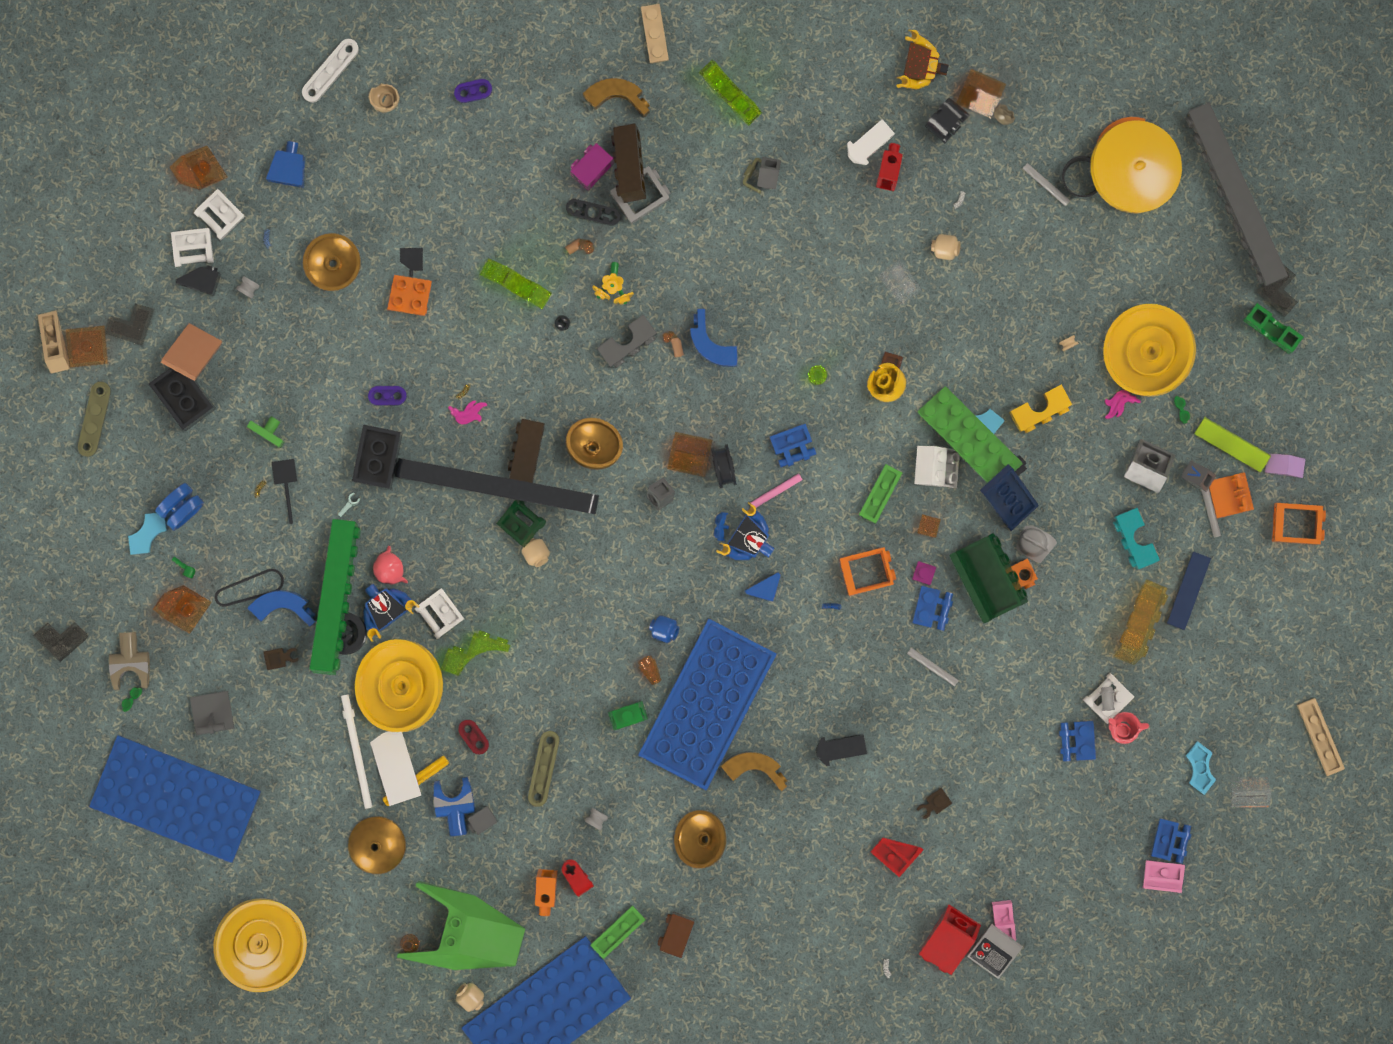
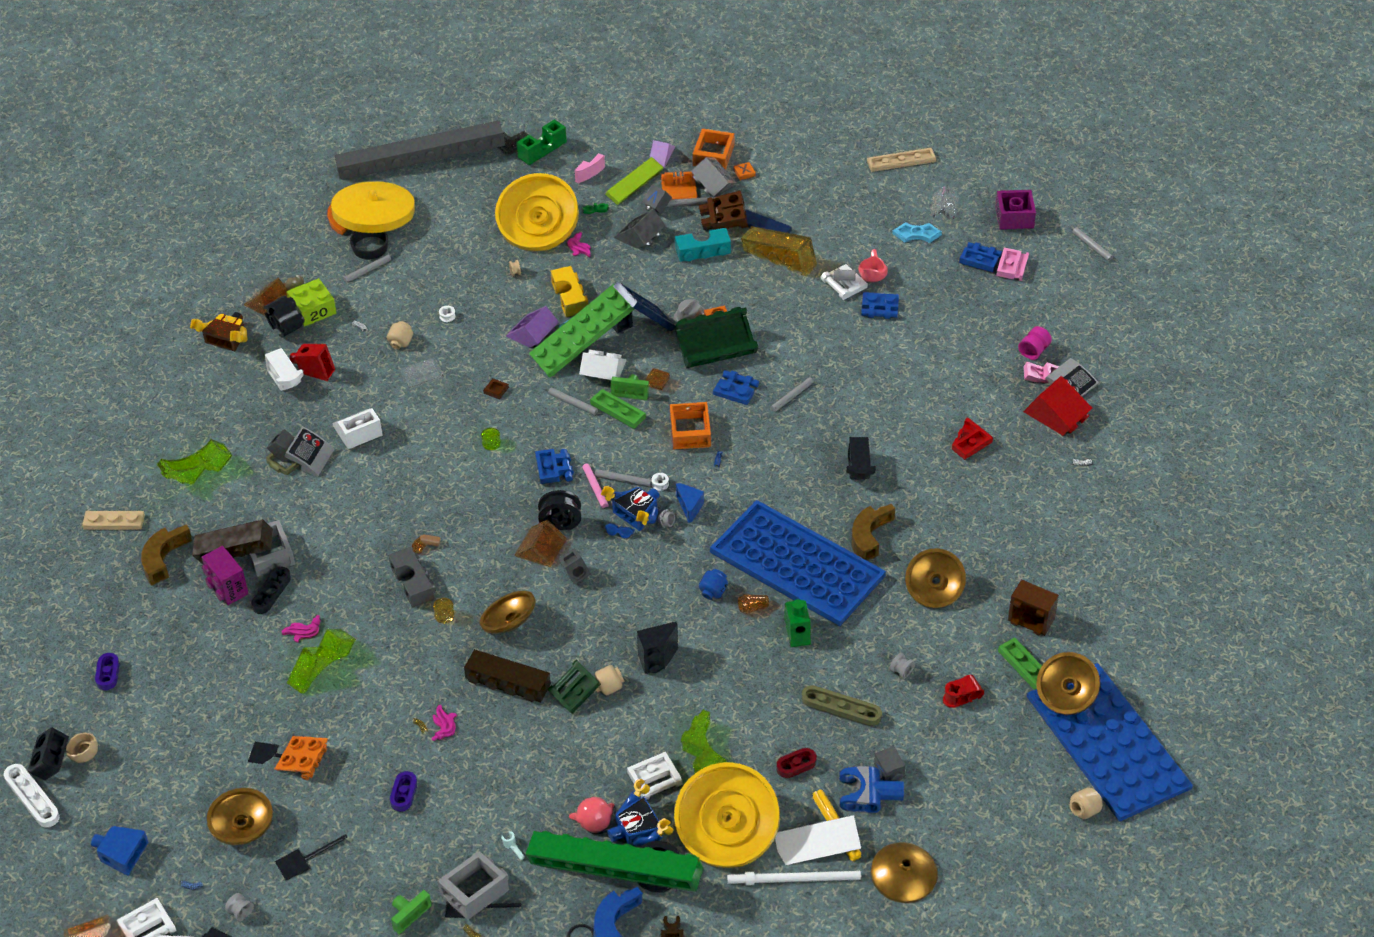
camera: 80 degrees left, 40 degrees down
(283, 469) = (471, 906): none -> light grey window
(301, 320) = (295, 863): none -> black piece
(370, 71) = (48, 753): none -> black brick
(377, 457) = (468, 804): black brick -> none
(409, 938) = (1021, 851): clear orange cone -> none
(472, 935) = (1020, 782): bright green windscreen -> none
(497, 486) = (528, 696): black beam -> none
(545, 884) = (974, 714): orange torso -> none
(551, 256) = (303, 631): none -> dark pink piece
(565, 319) = (375, 630): black hinge -> none
(571, 590) = (657, 646): none -> black slope
(576, 971) = (1061, 671): none -> pearl gold dish
(581, 244) = (302, 599): arm -> none
(592, 378) = (443, 610): none -> clear yellow wheel
(612, 284) = (348, 572): yellow plant -> none
(707, 349) = (436, 516): blue arch -> none
(742, 569) = (666, 518): none -> light grey plate
(766, 200) = (309, 451): none -> slope
(790, 516) = (623, 478): none -> light grey bar
(792, 548) = (660, 486): none -> white bush
(810, 237) = (359, 428): none -> white slope
(886, 446) = (573, 401): none -> light grey bar
(887, 383) = (513, 384): yellow cylinder -> none
(911, 501) = (630, 387): none -> bright green tile
(924, 573) = (701, 389): magenta plate -> none
(936, 801) = (924, 406): dark brown plate -> none
(977, 141) = (313, 301): none -> lime brick
(980, 382) = (534, 327): none -> medium lavender slope
(995, 284) = (446, 310): none -> white bush
(1040, 909) = (1035, 343): none -> dark pink wheel
(1186, 547) = (724, 212): none -> reddish brown hips
(1213, 960) = (1092, 244): none -> light grey bar
(1237, 387) = (588, 170): none -> bright pink slope
(1244, 533) = (713, 176): none -> light grey slope
(1245, 872) = (1015, 209): none -> magenta brick
(1271, 563) = (744, 171): none -> orange tile

